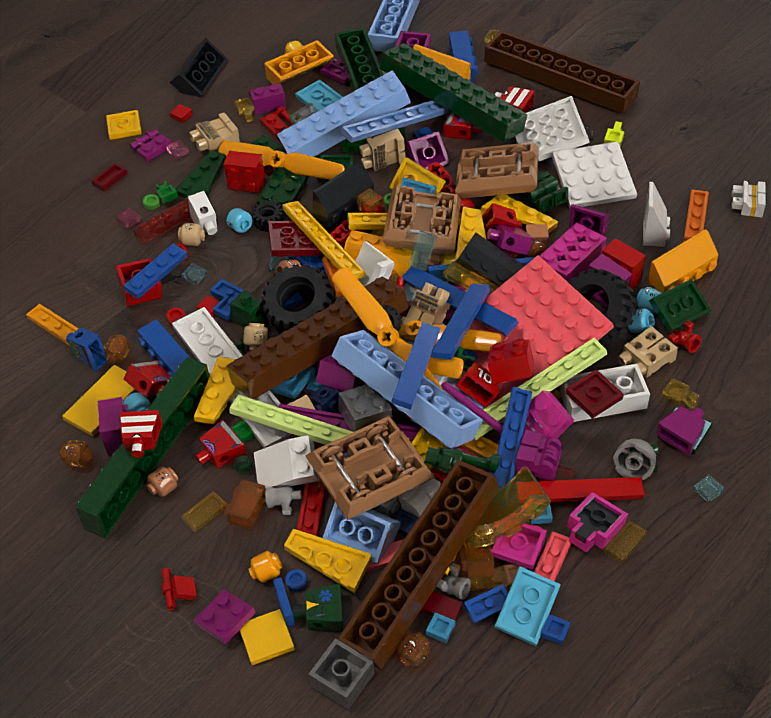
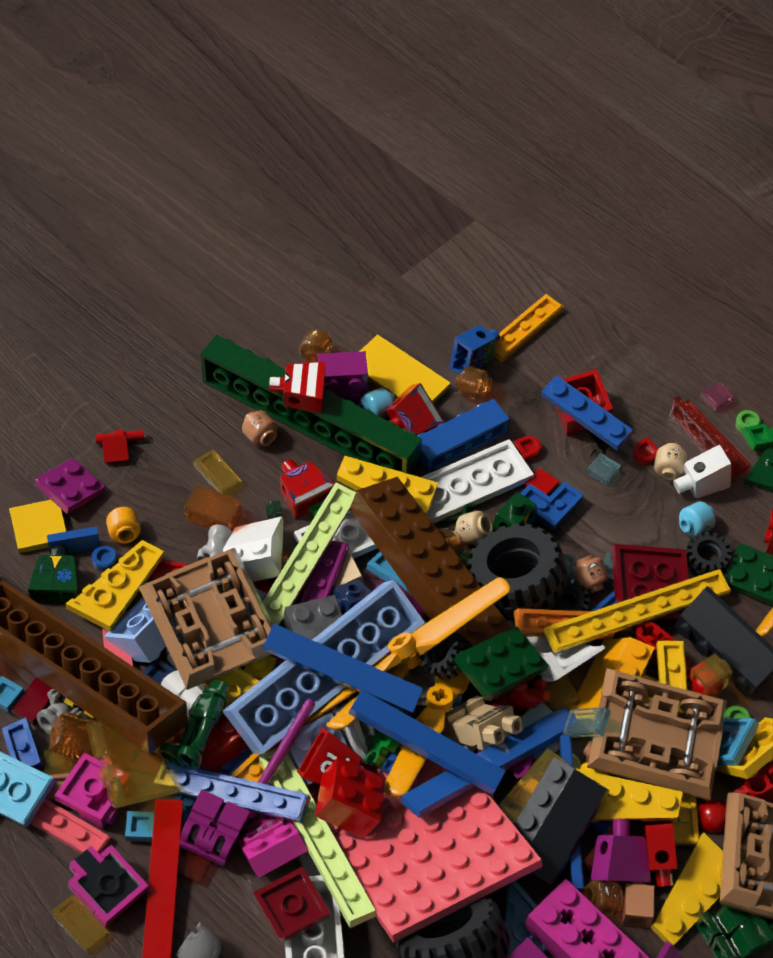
camera: 90 degrees right, 5 degrees up
(392, 286) = (501, 663): none -> dark green plate

